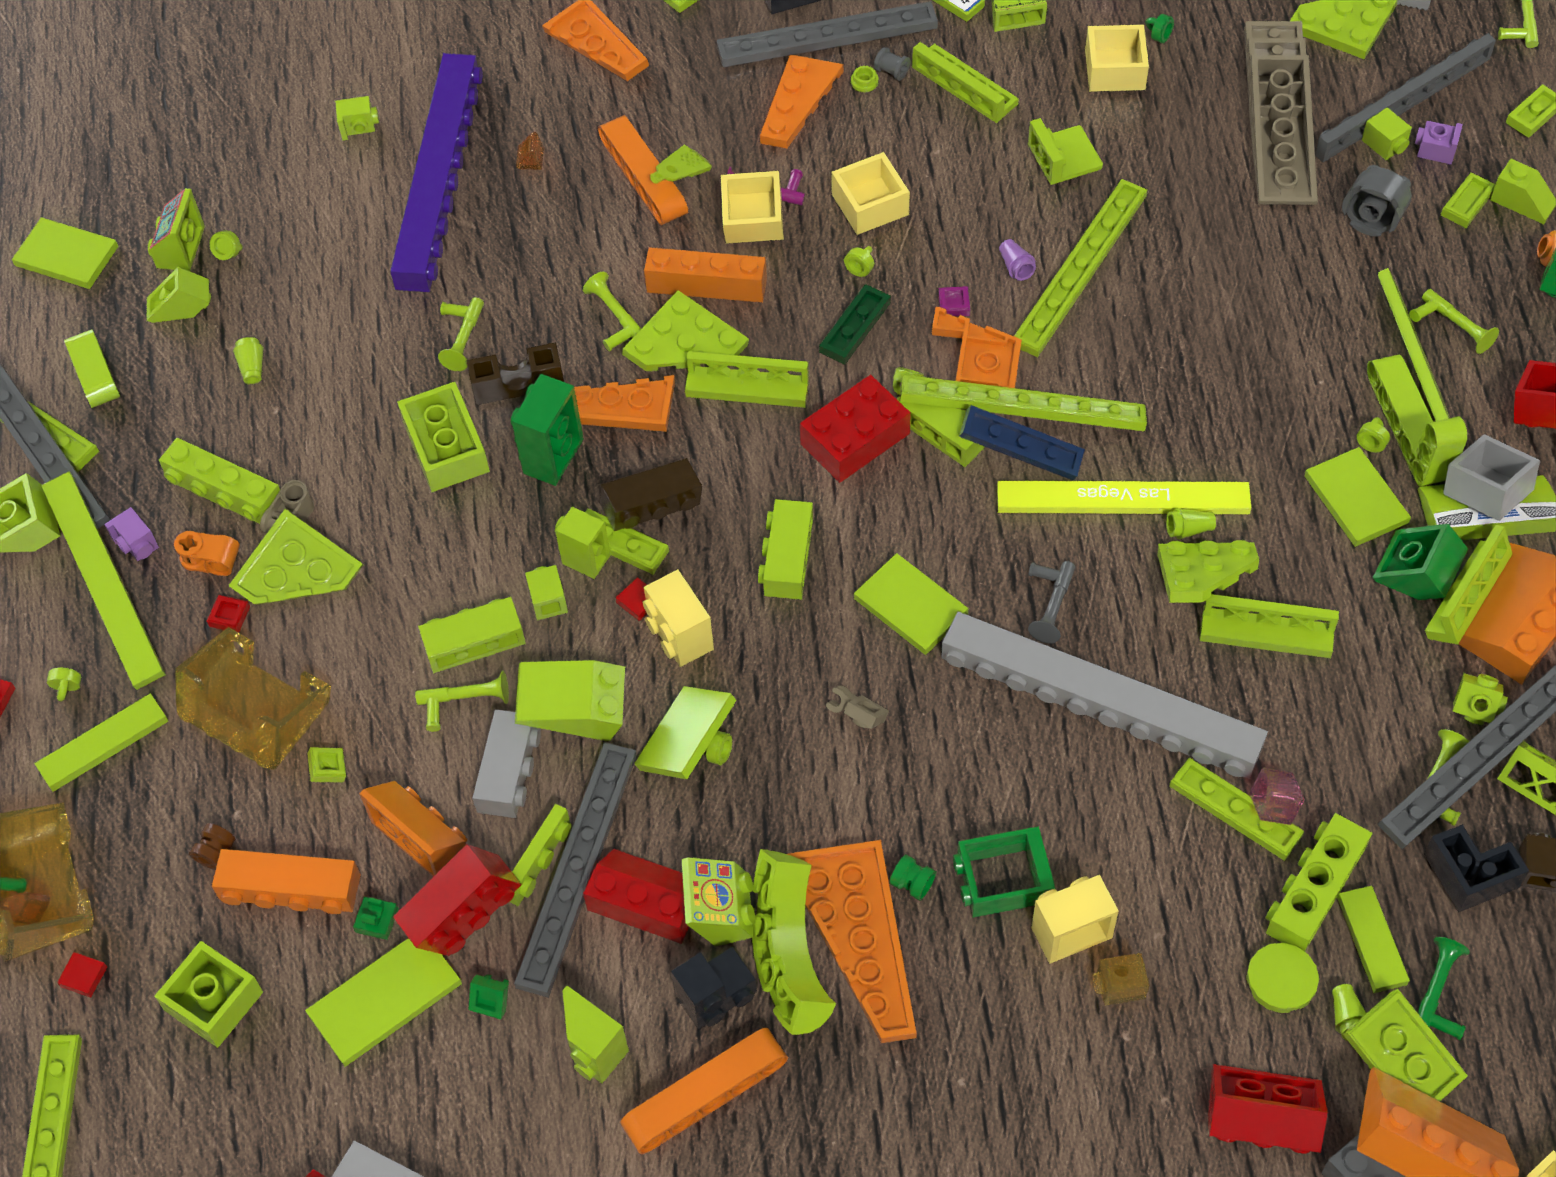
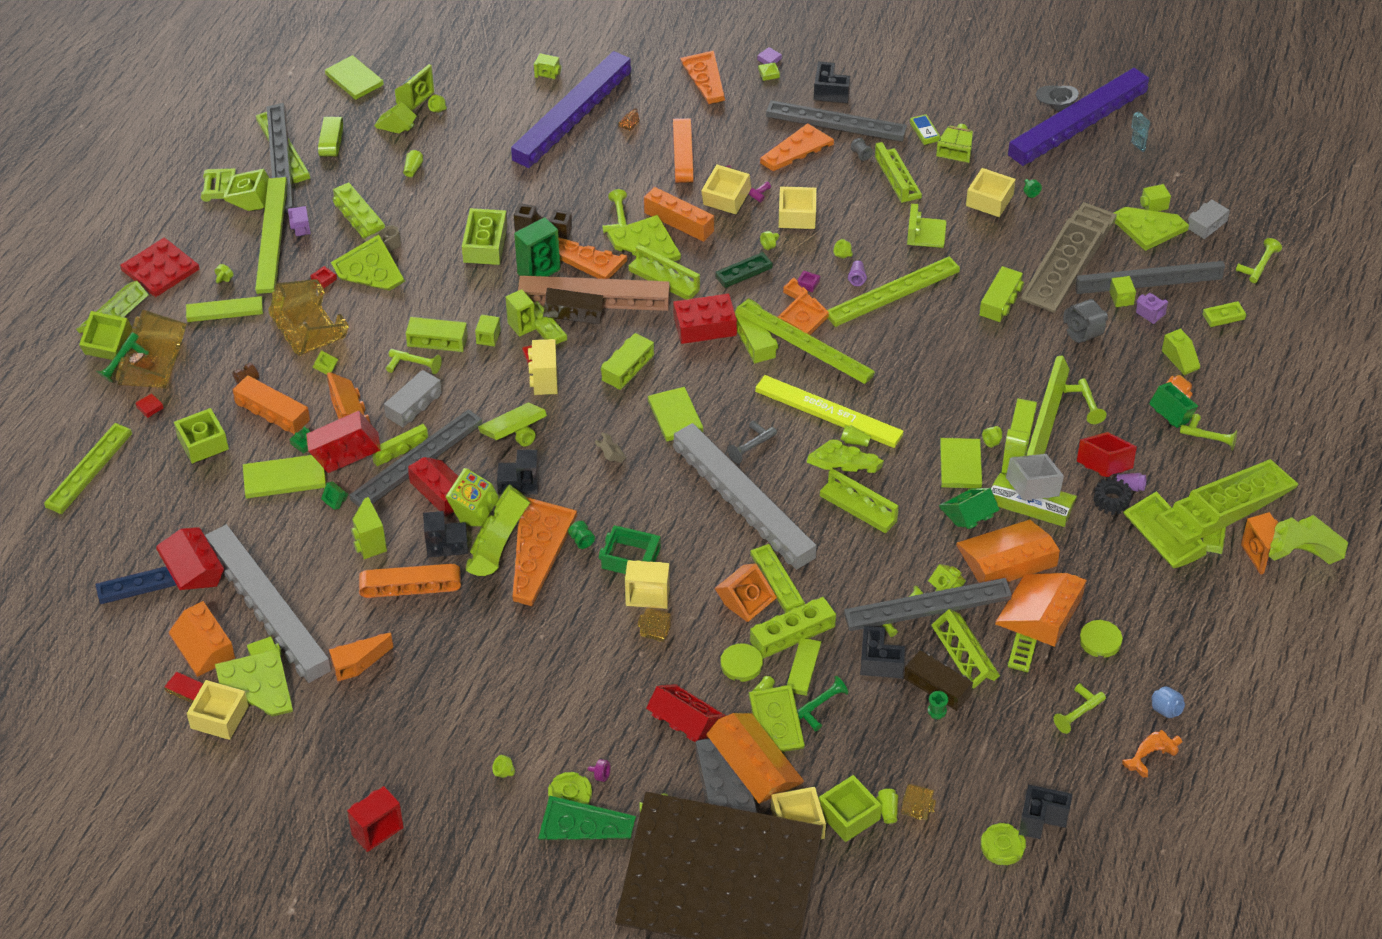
camera: 25 degrees right, 10 degrees down
(209, 554) = (330, 243): orange piece -> none
(453, 358) = (540, 187): lime piece -> none
(571, 697) = (464, 380): lime slope -> none
(681, 164) = (708, 154): lime piece -> none
(702, 442) = (615, 292): none -> nougat brick
(759, 822) = (520, 475): none -> black brick
(864, 79) = (840, 151): lime plate -> none
(971, 230) = (842, 249): none -> lime tile
(1021, 442) = (788, 359): dark blue plate -> none
(1213, 855) = (746, 592): none -> orange slope
(1234, 207) = (1001, 294): none -> lime brick
(1276, 796) = (798, 577): clear pink brick -> none
(1468, 200) = (1145, 345): lime tile -> none
(1470, 588) = (987, 529): lime fence -> none

